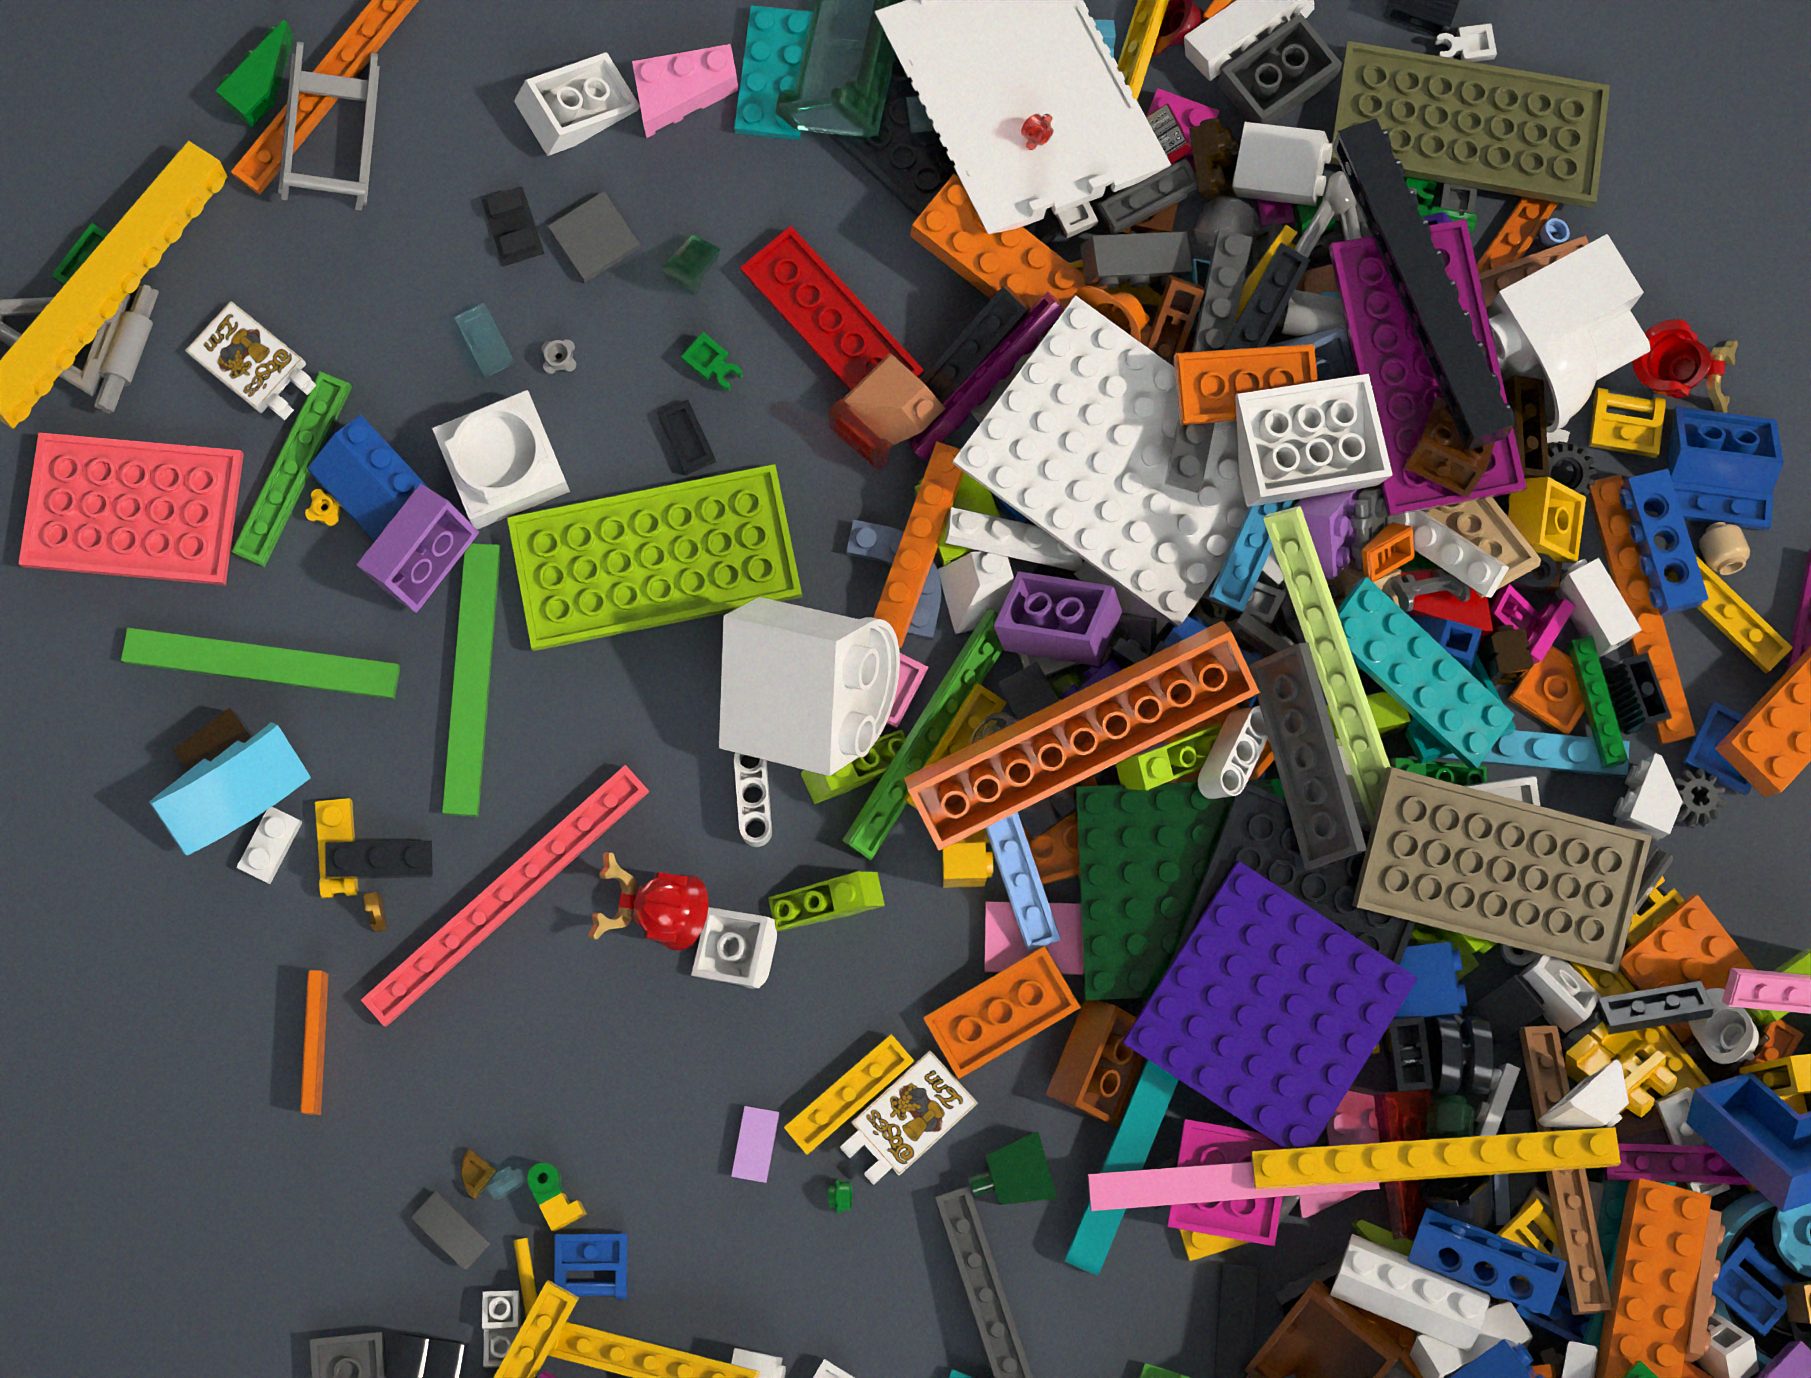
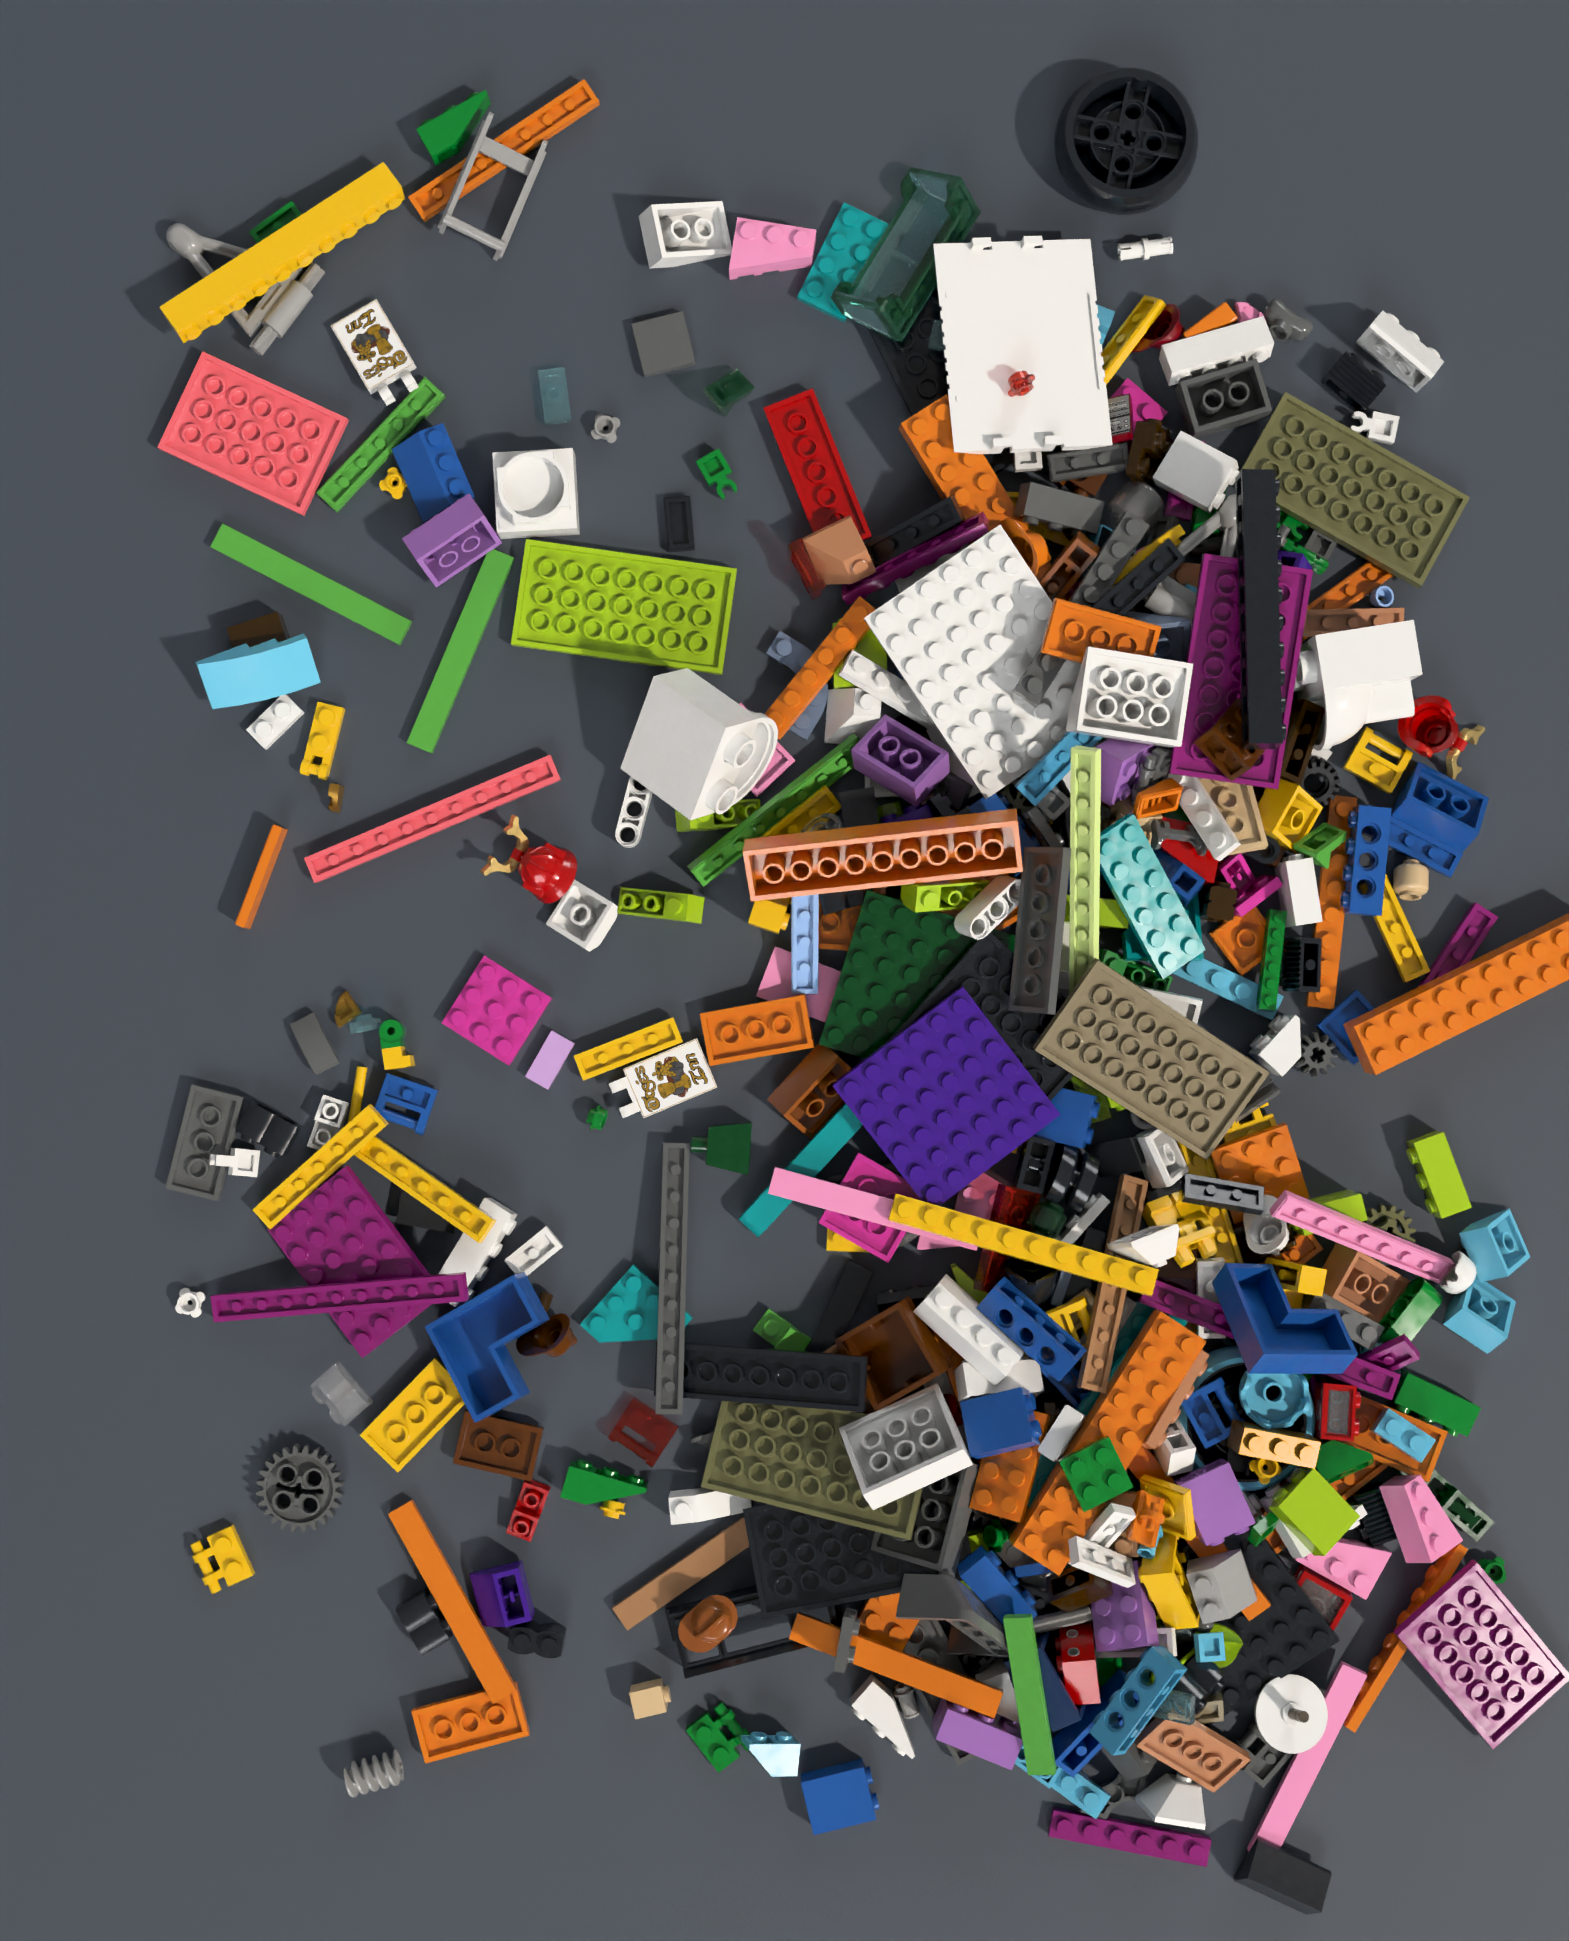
camera: 15 degrees right, 10 degrees up
(378, 859) = (349, 760): black plate -> none
(512, 226) = (605, 314): black piece -> none
(667, 1106) = (497, 1010): none -> dark pink plate
(1601, 540) = (1320, 843): none -> bright green slope

